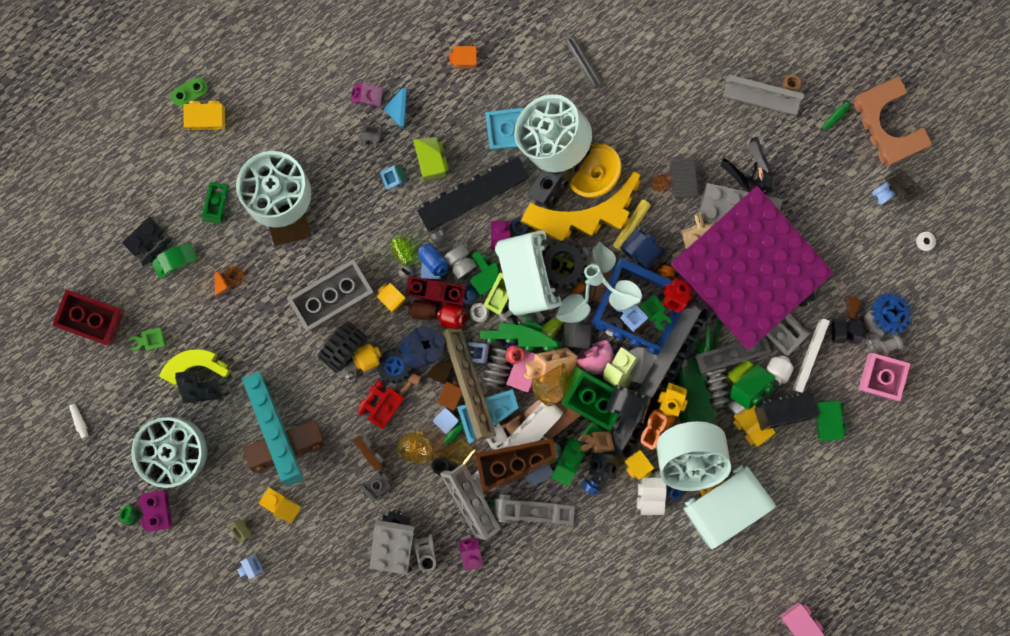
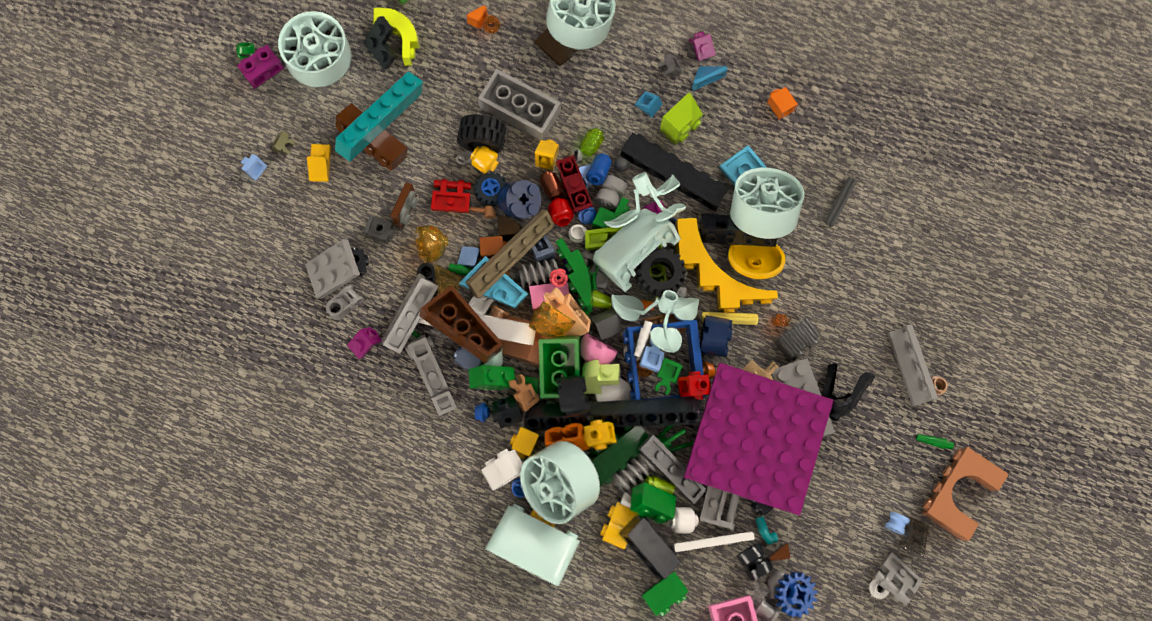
camera: 55 degrees right, 10 degrees down
(483, 234) = (644, 187): none -> light aqua plant
(612, 314) = (643, 338): none -> white animal
(827, 308) = (763, 530): none -> teal arm
(927, 216) = (901, 575): none -> light grey plate

